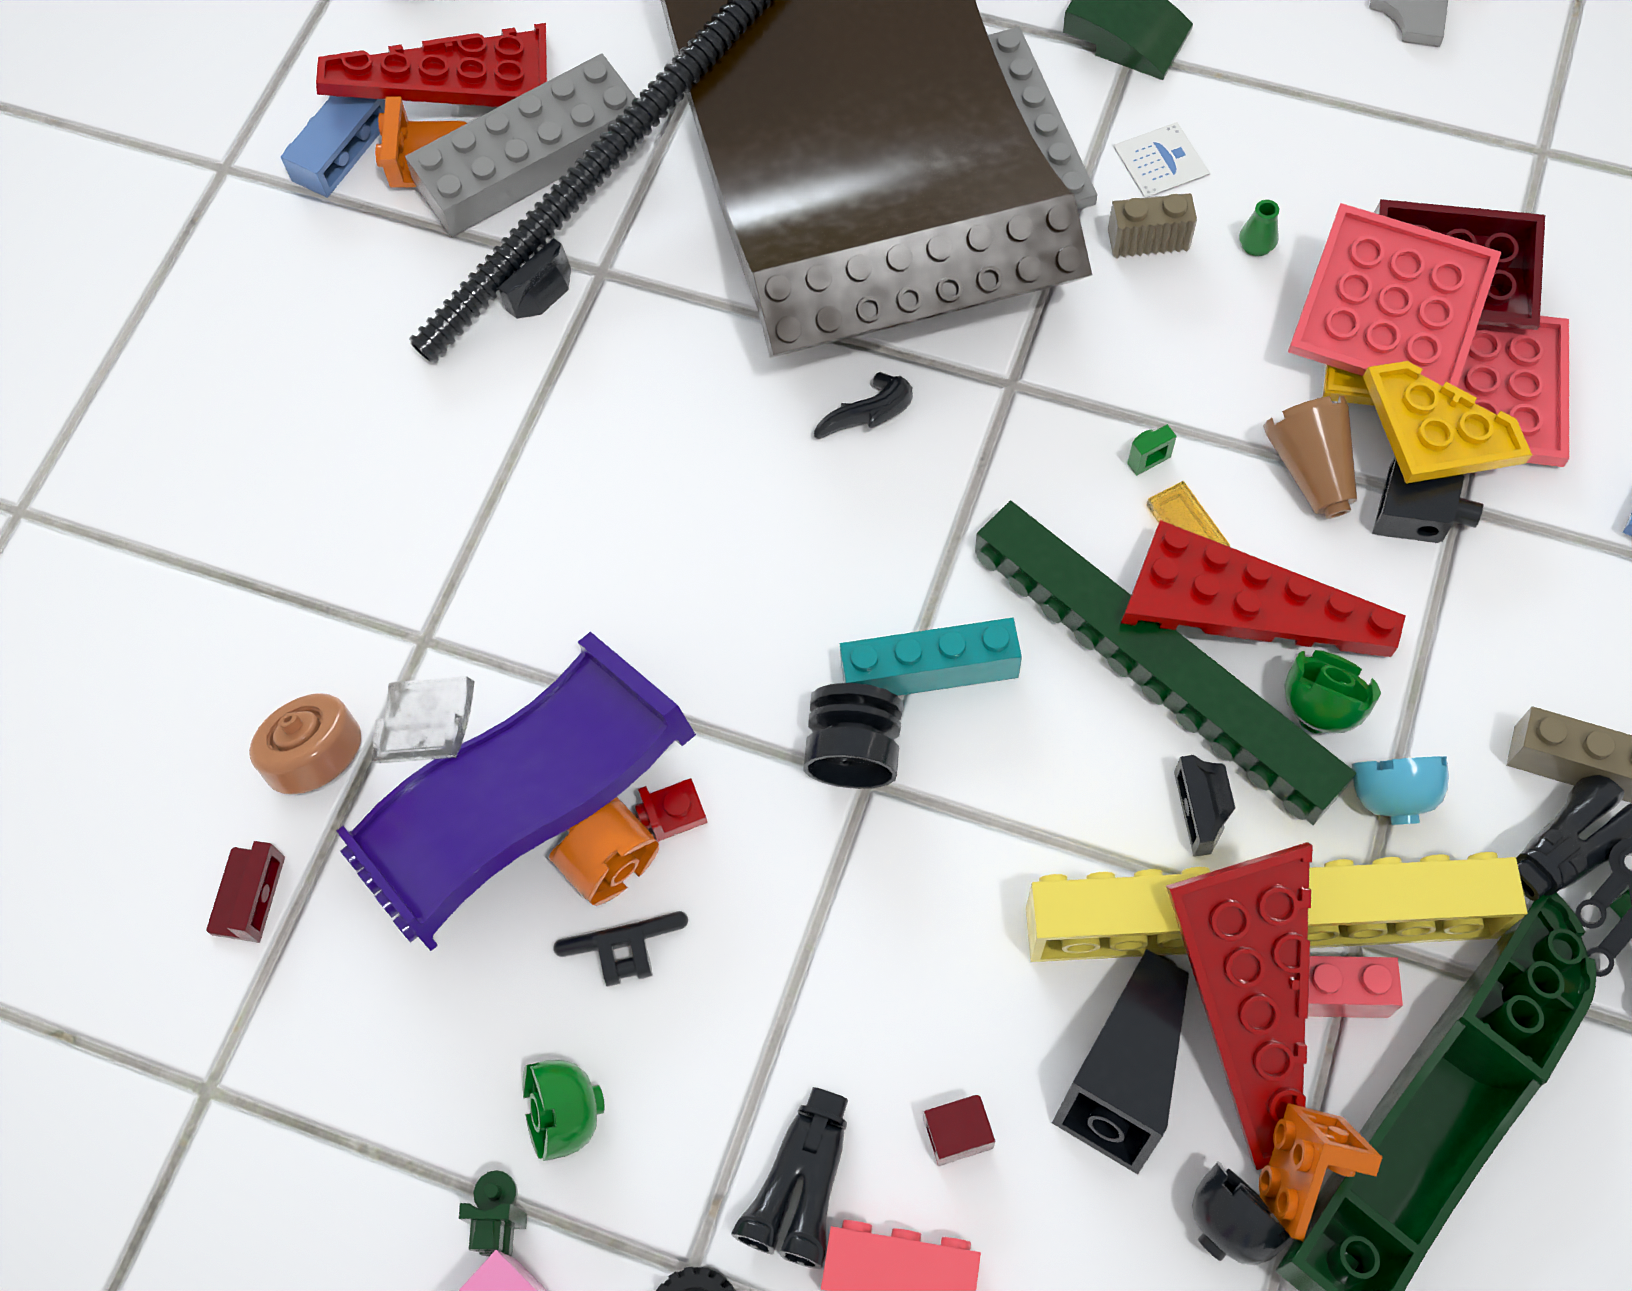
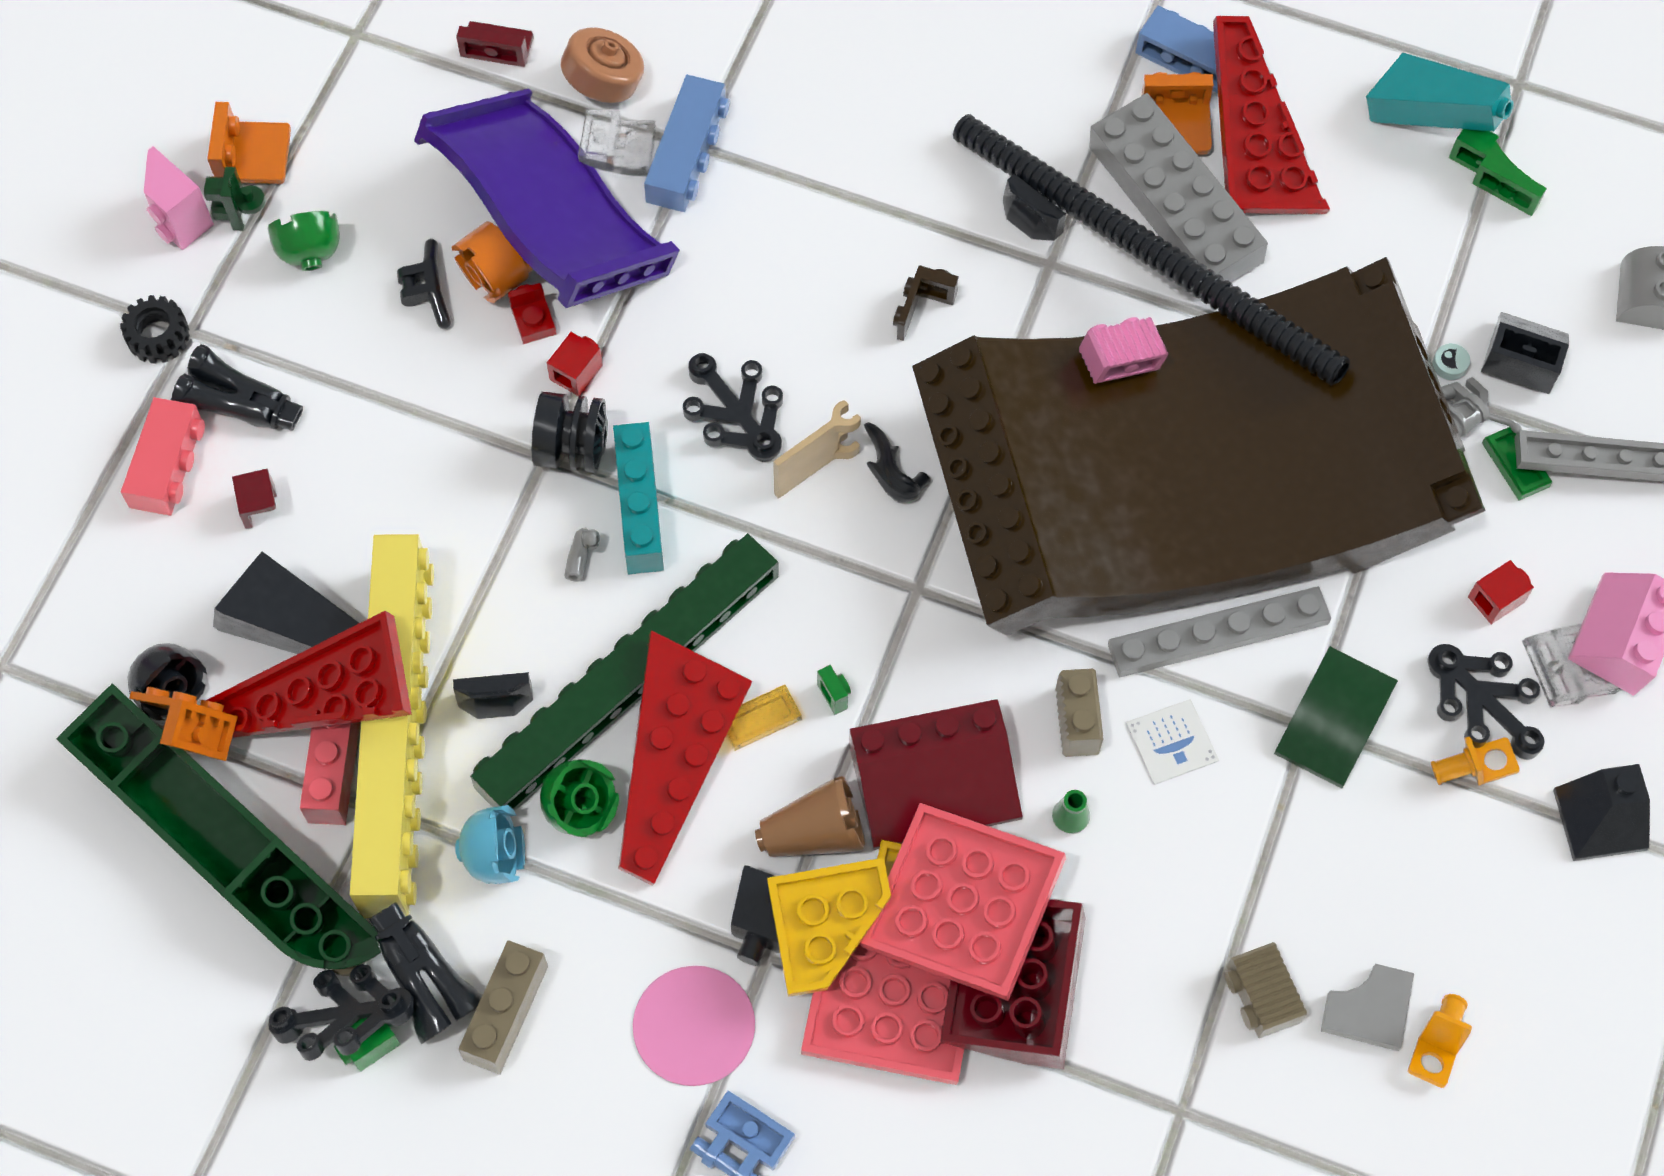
camera: 85 degrees right, 0 degrees up
(401, 1212) = (254, 148): none -> orange bracket
(426, 641) = (686, 143): none -> medium blue brick
(644, 390) = (927, 283): none -> dark brown bracket
(744, 747) = (575, 363): none -> red brick
(752, 156) = (1123, 349): none -> bright pink brick
(799, 566) = (736, 410): none -> black plant
(866, 468) = (816, 451): none -> tan flag
(1000, 728) = (583, 540): none -> light grey arm
(1230, 352) = (939, 759): none -> dark red slope
(1417, 77) = (1265, 990): none -> dark tan brick
(1550, 574) = (693, 1025): none -> bright pink sticker

